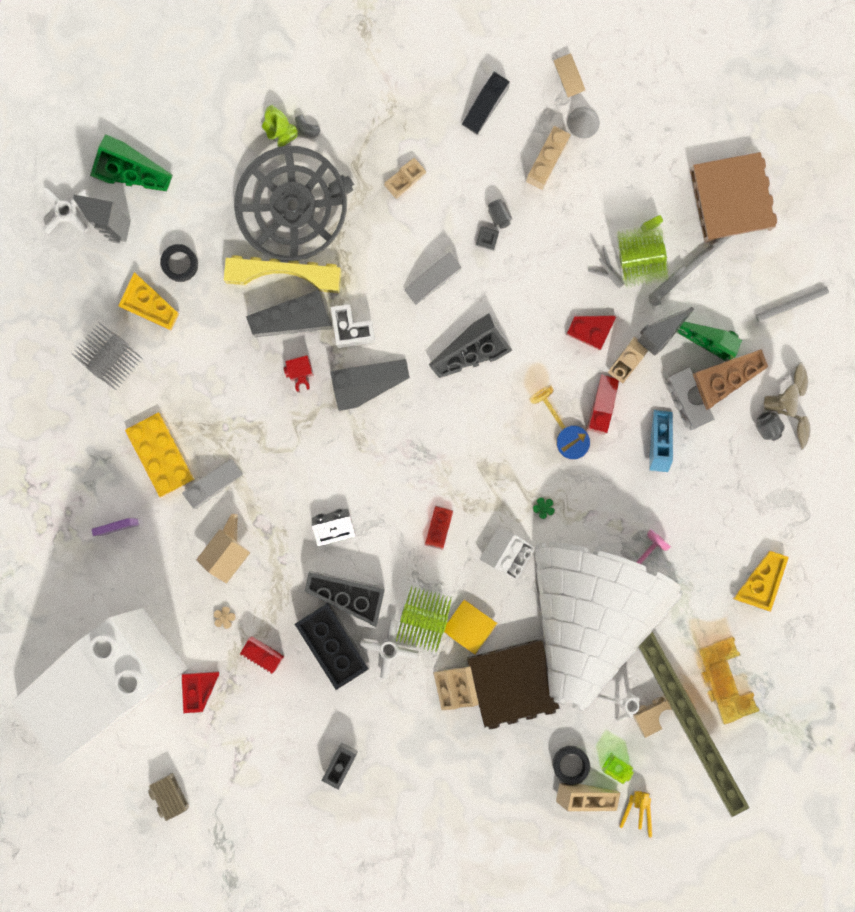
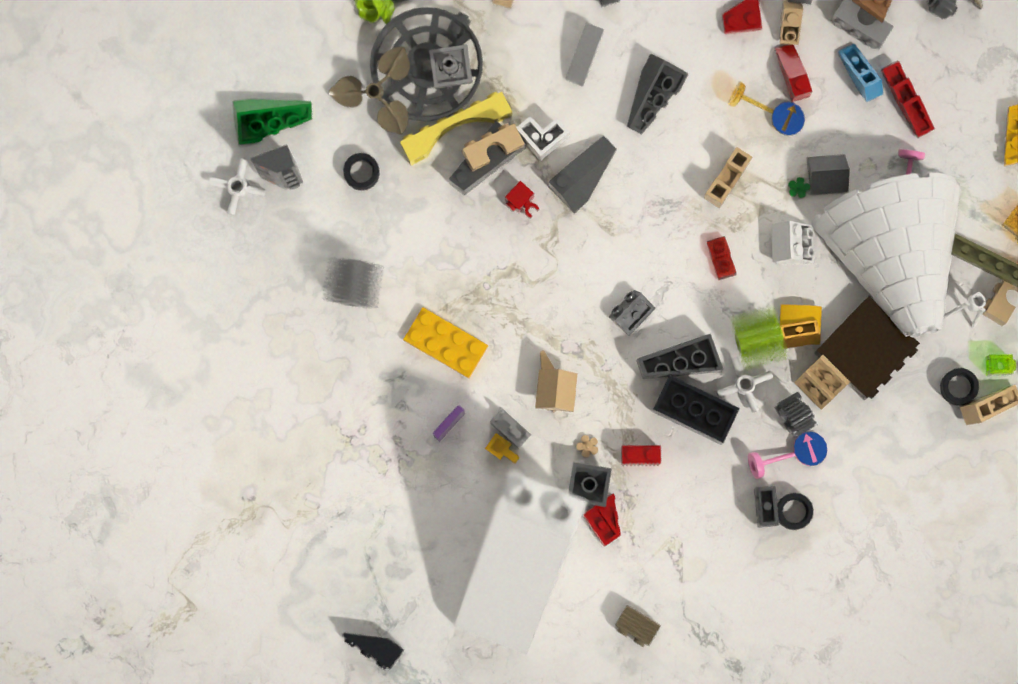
camera: 30 degrees left, 5 degrees down
(147, 303) = (356, 222): yellow wing -> none
(148, 574) = (500, 447): none -> yellow plate
(167, 562) = (510, 428): none -> light grey hinge
(201, 653) = (590, 483): none -> dark grey slope
(211, 188) = (349, 90): none -> dark tan plant
(212, 484) = (507, 339): light grey slope -> none
(280, 309) = (476, 152): none -> tan arch
(301, 216) = (441, 59): none -> light grey plate
(365, 797) = (808, 506): none -> black tyre
(409, 736) = (808, 448): none -> piece
(414, 703) = (796, 414): none -> dark grey brick
(462, 635) = (801, 334): none -> pearl gold slope
(487, 462) = (728, 177): none -> tan arch
(576, 512) = (828, 174): none -> dark grey slope
(686, 489) = (907, 99): none -> red slope

